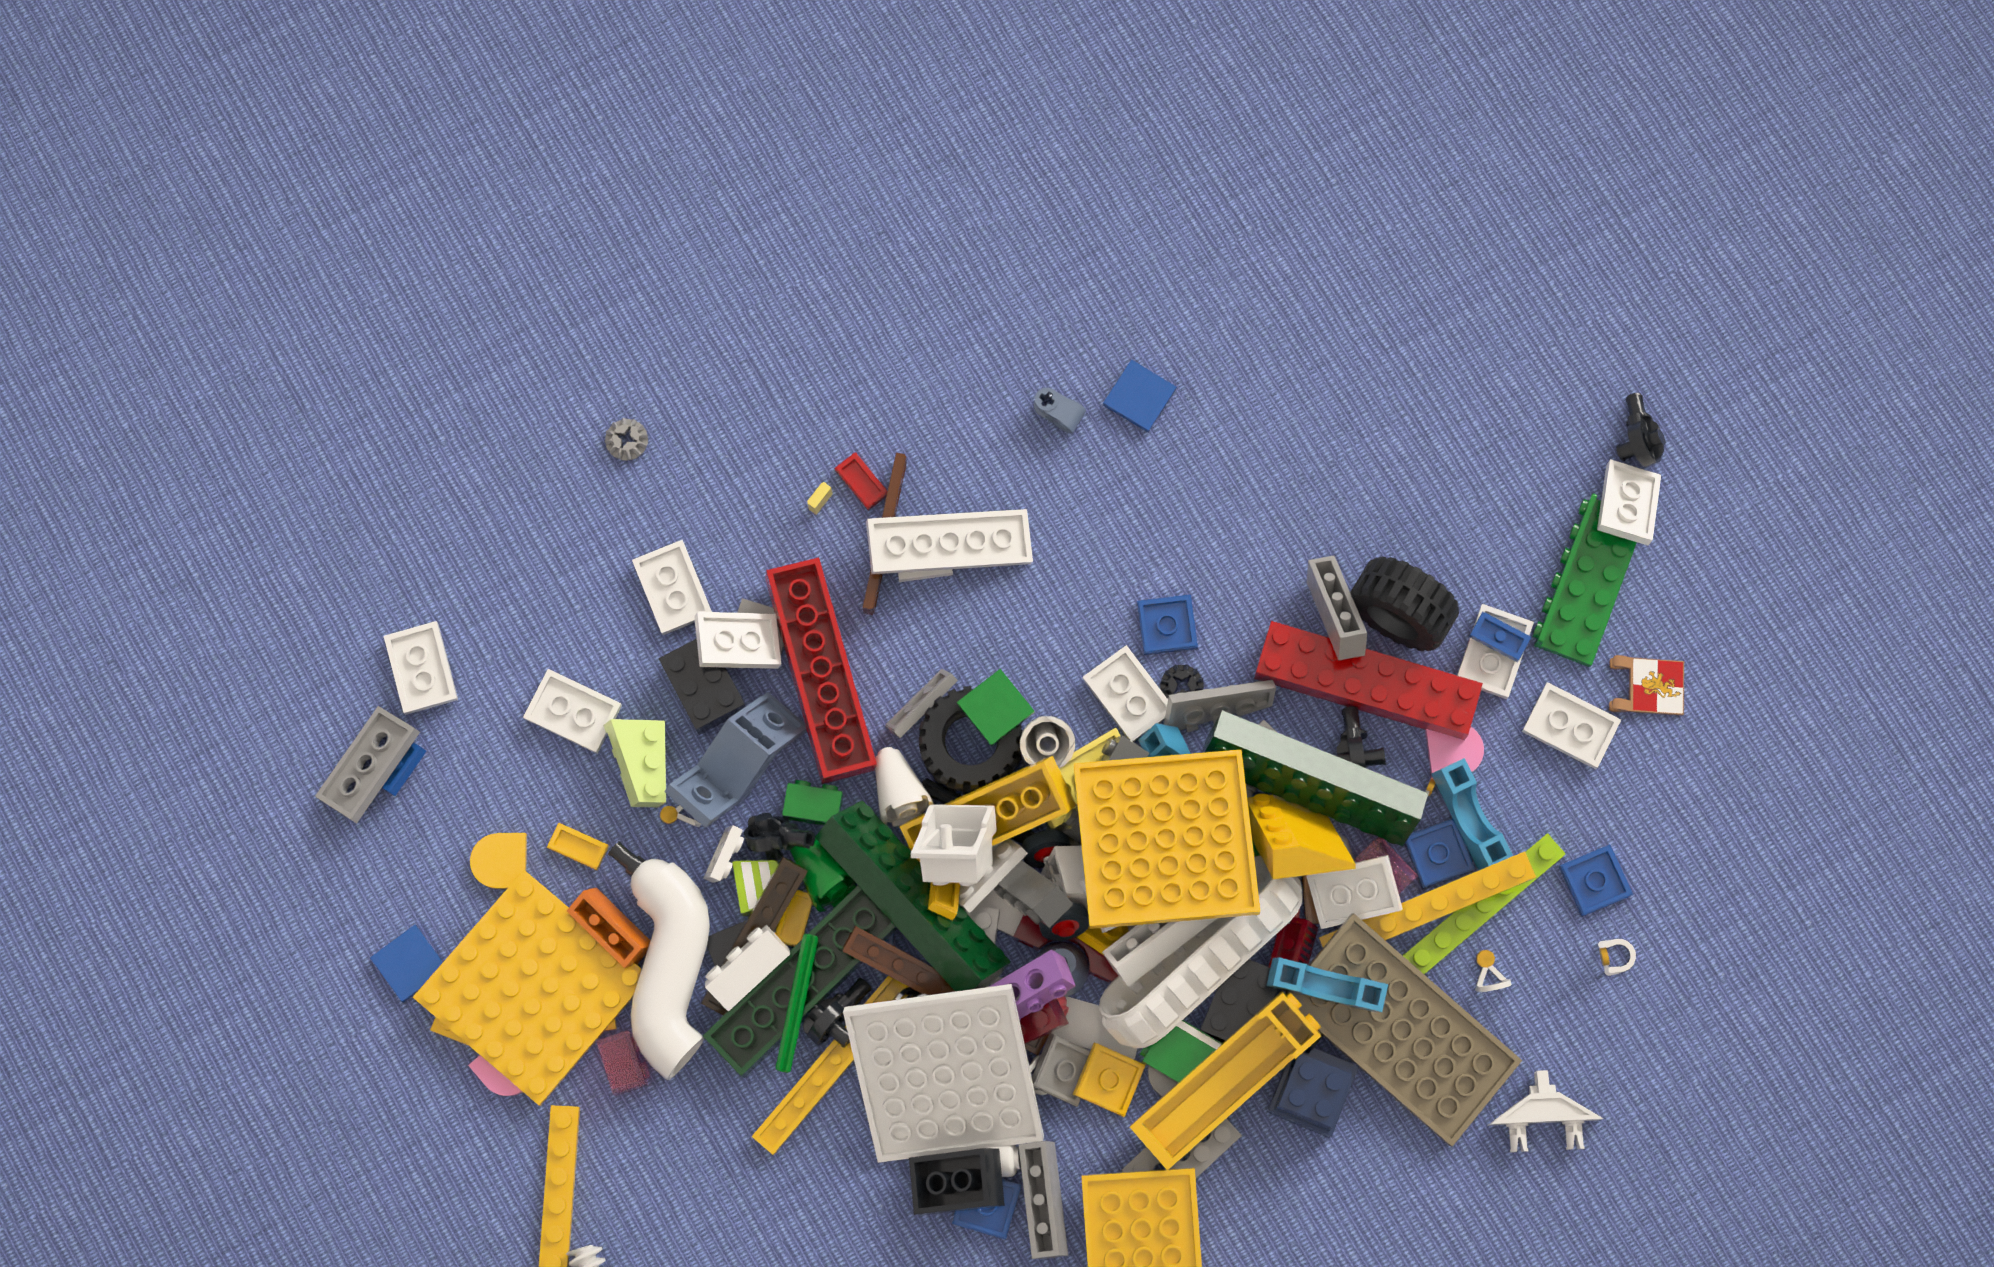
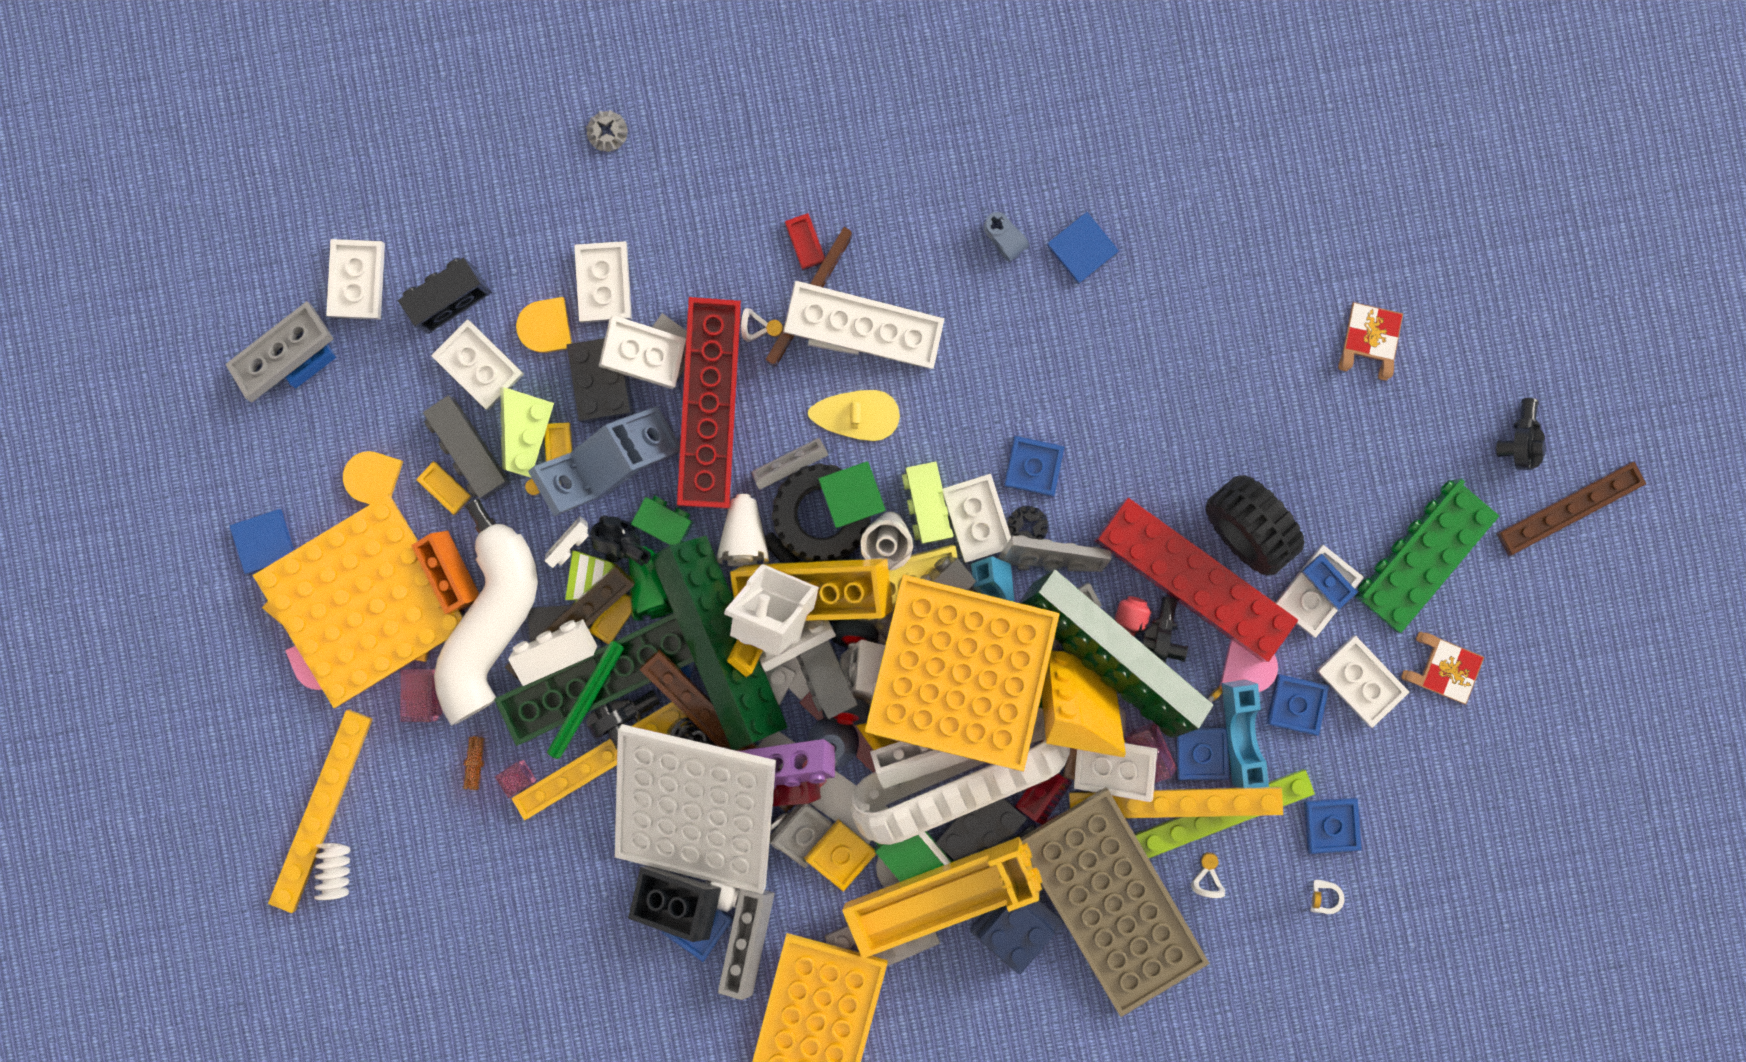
camera: 15 degrees right, 10 degrees up
(519, 651) = (444, 295): none -> black brick
(588, 797) = (466, 448): none -> dark grey brick
(627, 651) = (544, 326): none -> yellow tile
(678, 758) = (557, 440): none -> yellow tile
(700, 1115) = (473, 762): none -> clear orange pin
(749, 1114) = (515, 778): none -> clear pink brick
(819, 498) = (761, 244): light yellow tile -> none
(858, 576) = (773, 327): none -> white piece
(973, 633) = (857, 414): none -> light yellow shield
(1073, 695) = (927, 503): none -> yellowish green wedge
(1319, 734) = (1133, 614): none -> coral head
(1327, 985) = (1064, 849): dark azure arch -> none
(1336, 607) = (1192, 507): light grey brick -> none
(1456, 385) = (1371, 334): none -> flag
(1516, 771) = (1297, 704): none -> blue tile
(1545, 1106) = (1210, 1009): white connector -> none
(1629, 502) = (1491, 498): white plate -> none
(1714, 487) = (1571, 508): none -> reddish brown tile

